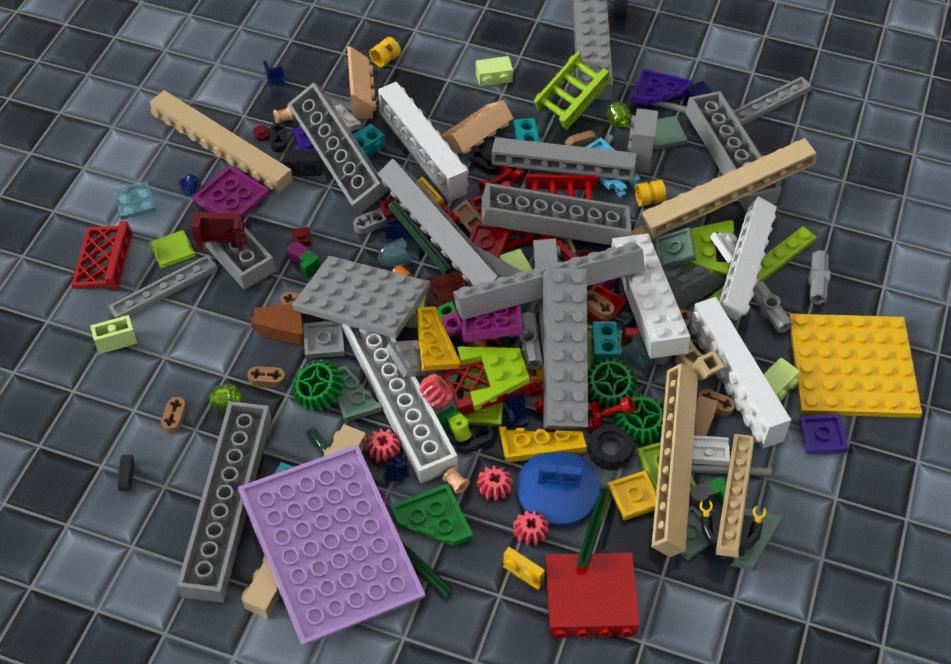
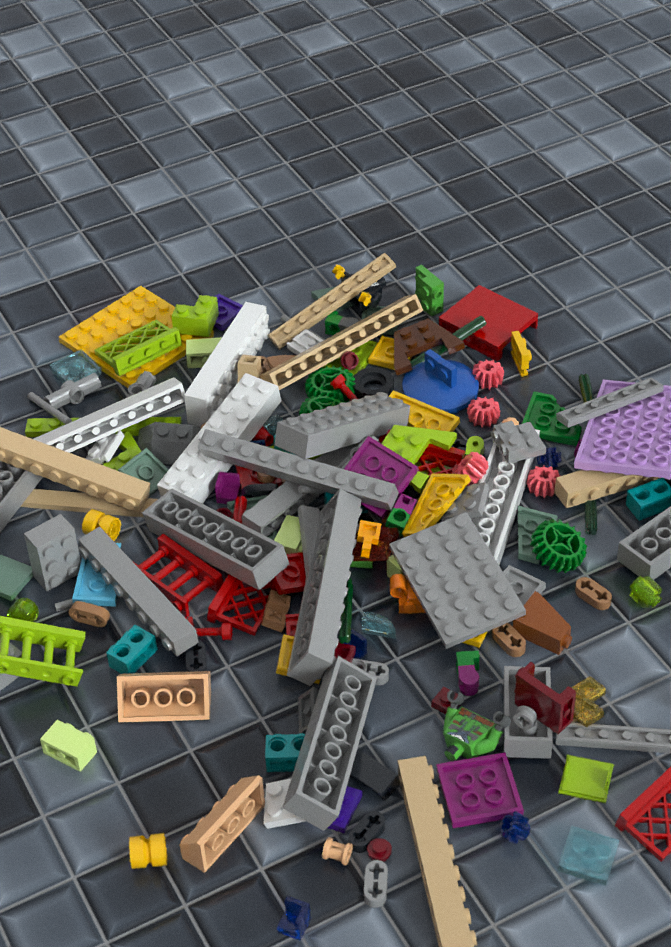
camera: 135 degrees left, 10 degrees down
(211, 284) = (586, 693): none -> clear yellow plate
(251, 115) = (380, 883): none -> light grey beam
(265, 217) = (468, 732): none -> torso
(387, 553) = (609, 402): none -> light grey tile
(422, 438) = (517, 441): none -> light grey plate
(423, 142) = (235, 705): white brick -> none
(450, 276) = (368, 534): none -> light orange plate
(620, 510) = (419, 338): none -> reddish brown wing
(652, 448) = (349, 360): none -> dark red plate
(672, 581) = (429, 290): none -> bright green plate
(810, 249) = (49, 408): none -> light grey bar
(812, 352) = (139, 354): none -> lime fence
(817, 394) = (196, 319): none -> lime brick
(847, 298) = (74, 367): none -> clear light blue plate

